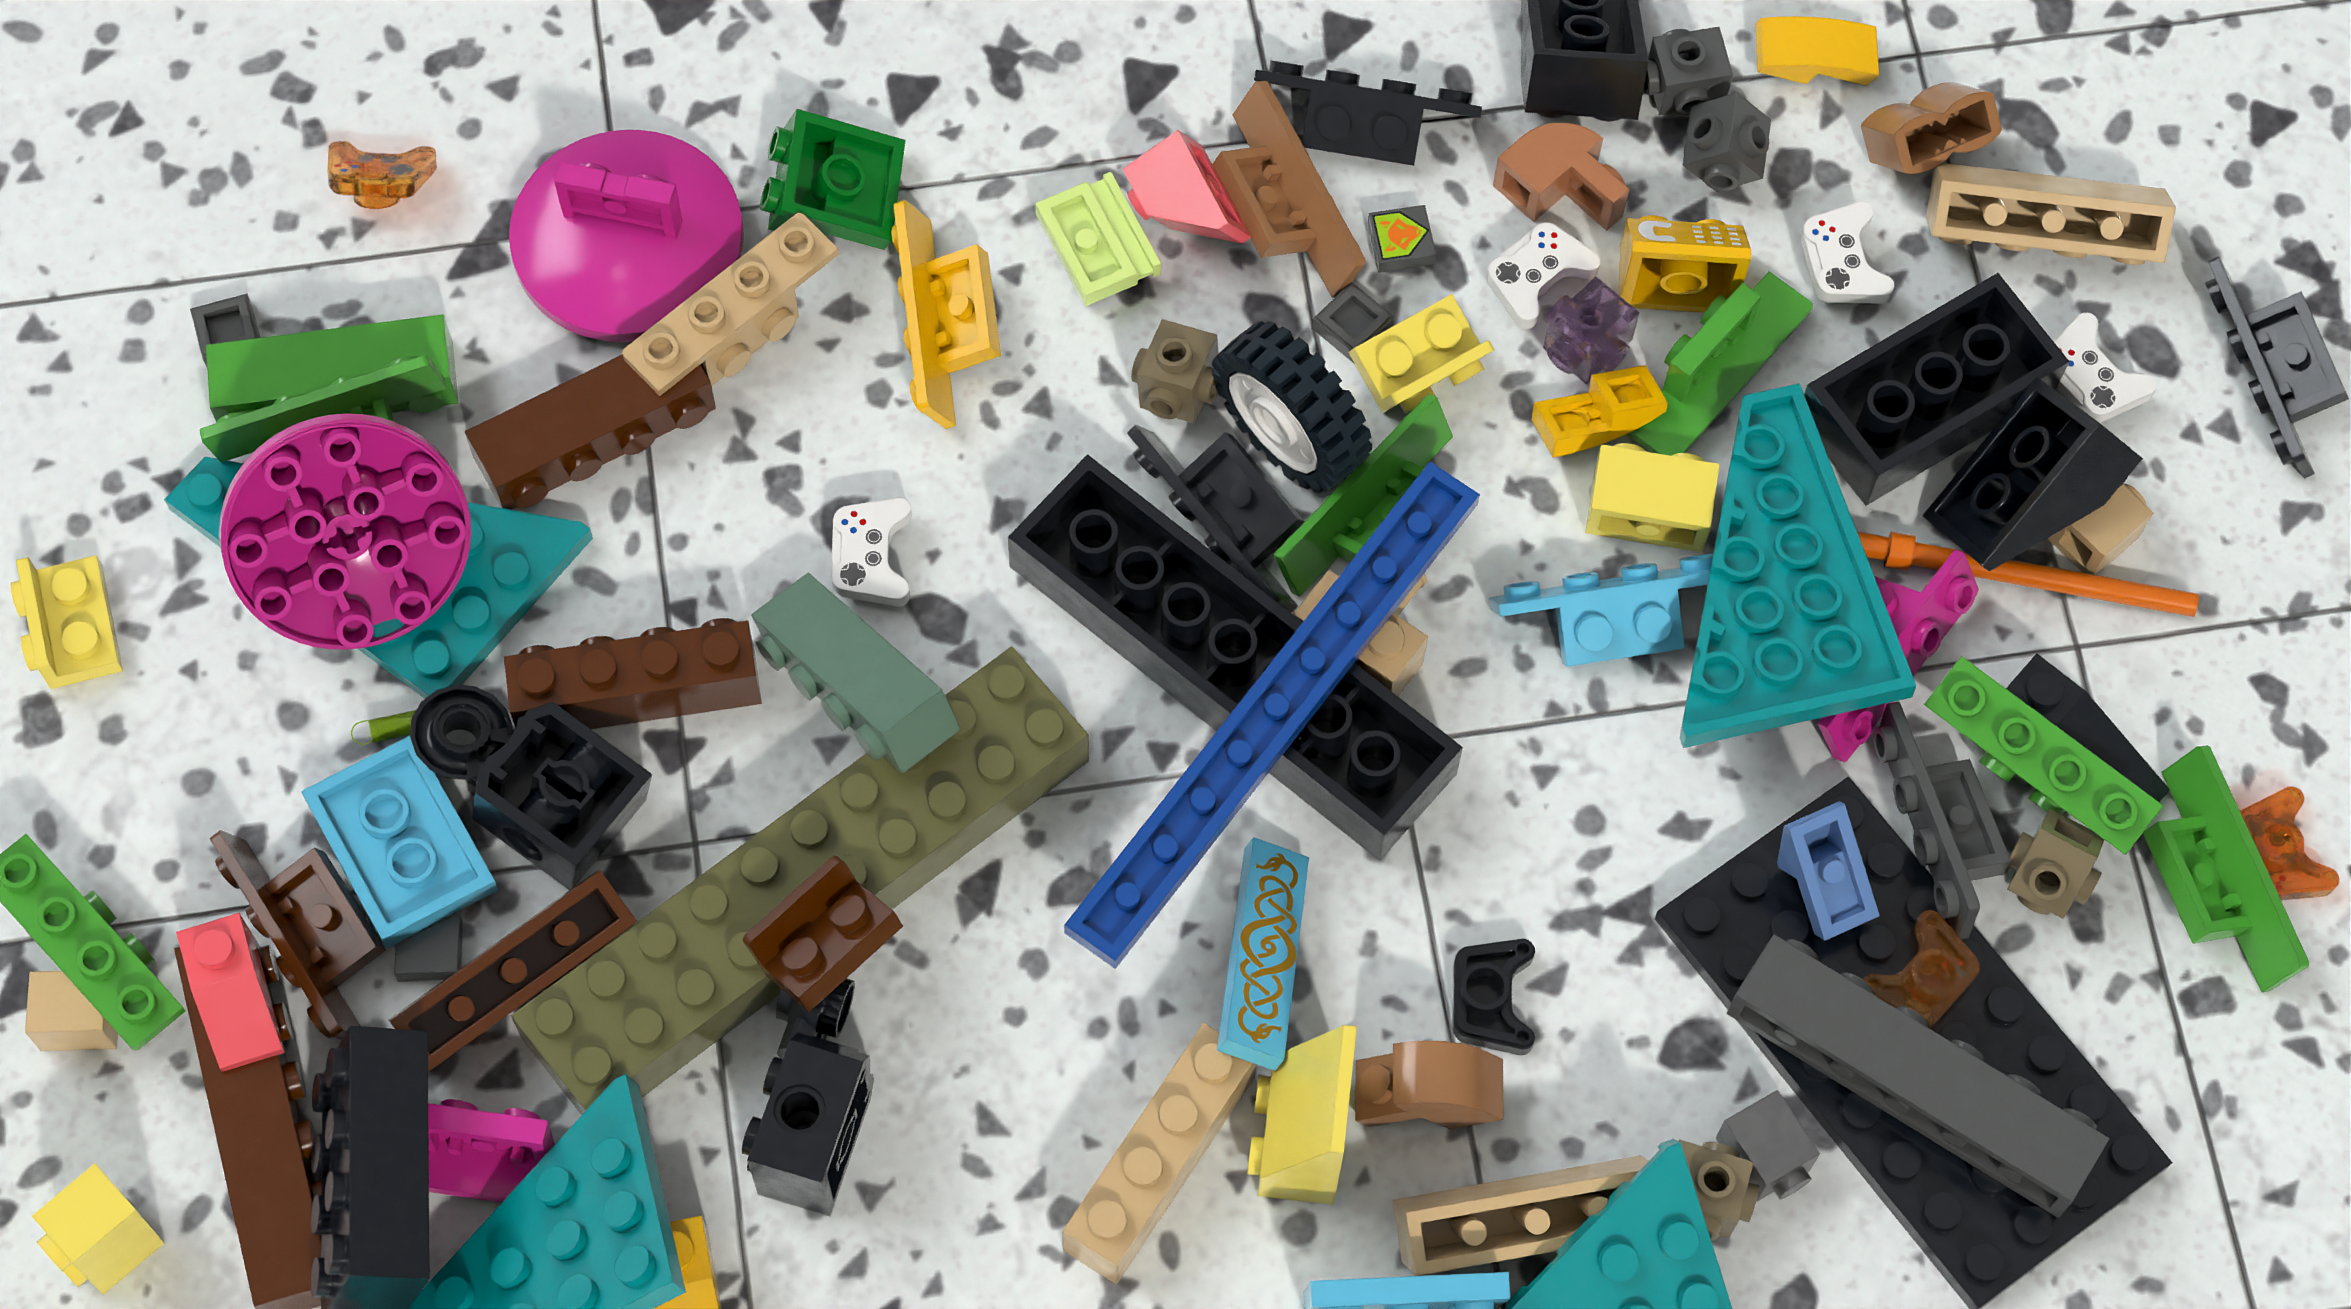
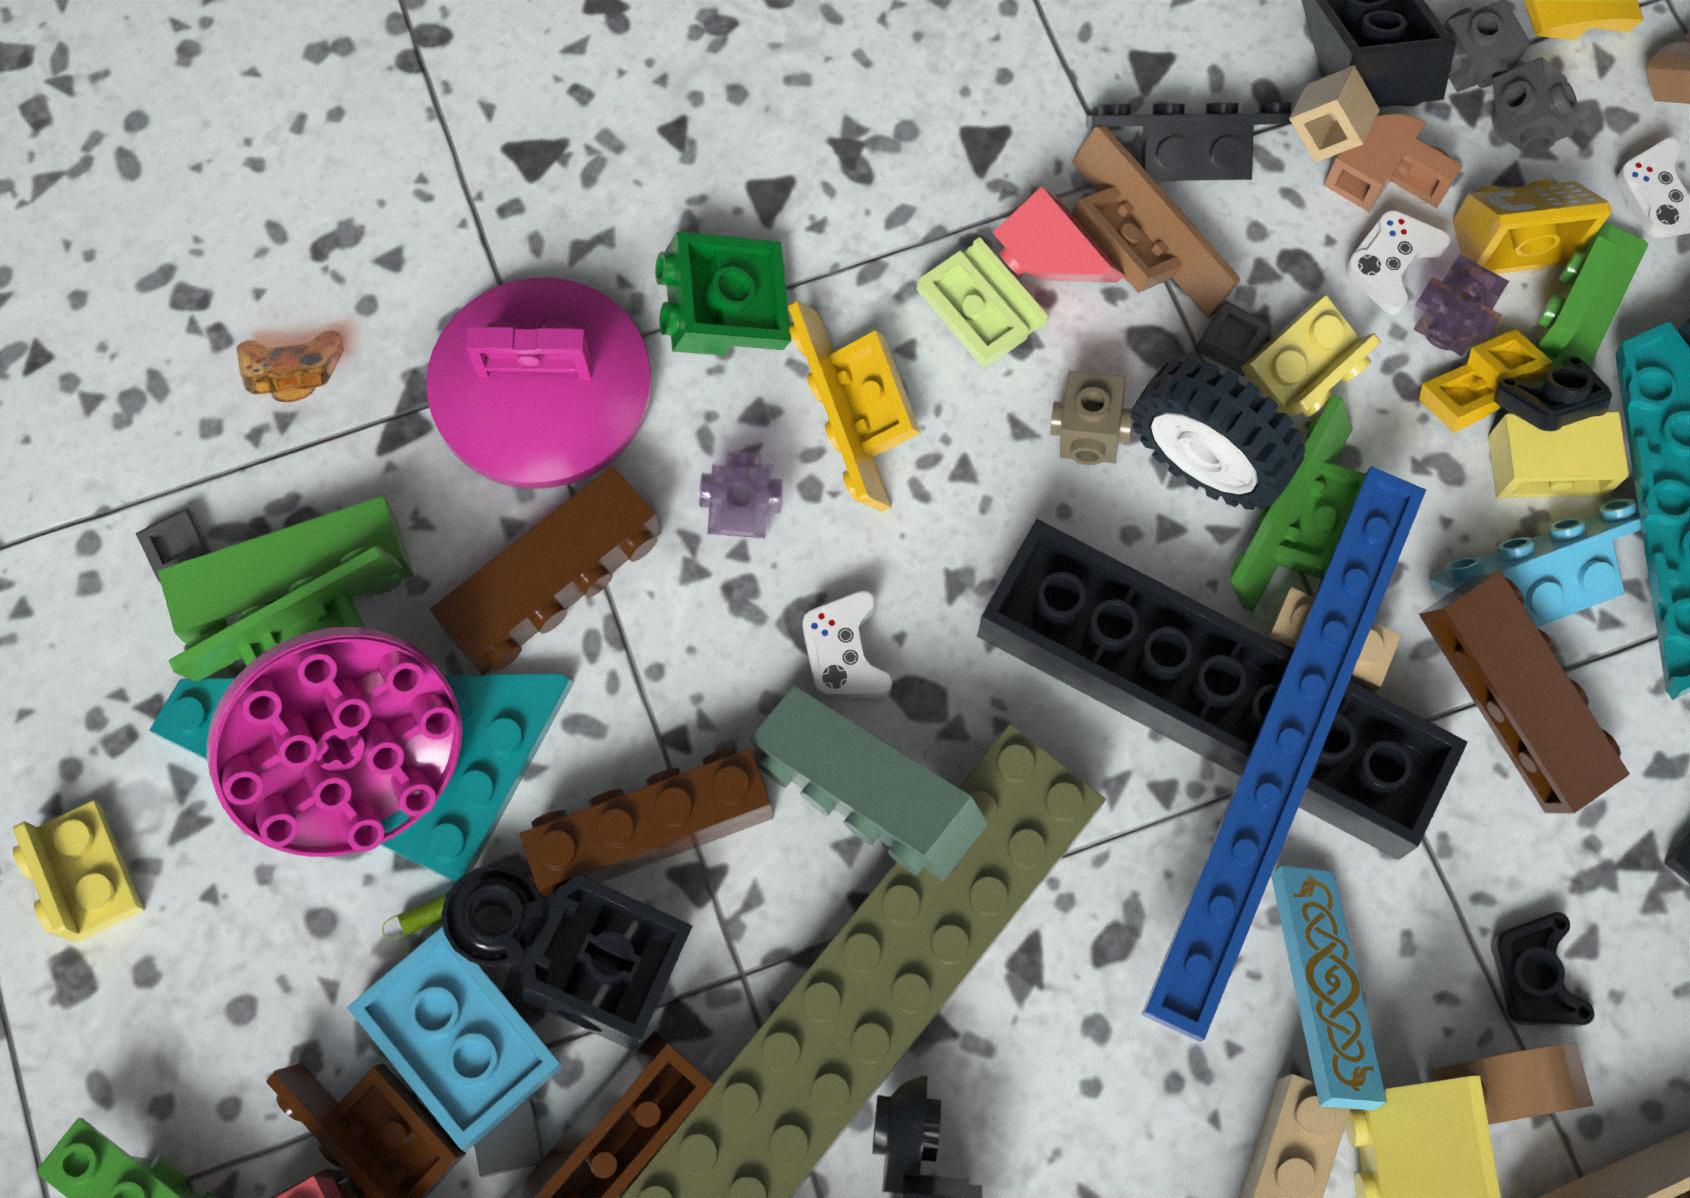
camera: 10 degrees left, 5 degrees up
(734, 310) = (660, 438): tan bracket -> none
(780, 379) = (735, 516): none -> clear purple brick
(821, 933) = (907, 1071): reddish brown bracket -> none
(1232, 502) = (1171, 532): black bracket -> none
(1401, 238) = (1257, 250): tile -> none
(1504, 112) = (1334, 114): none -> tan brick
(1541, 715) = (1525, 693): none -> reddish brown brick
(1661, 437) = (1564, 397): none -> black piece

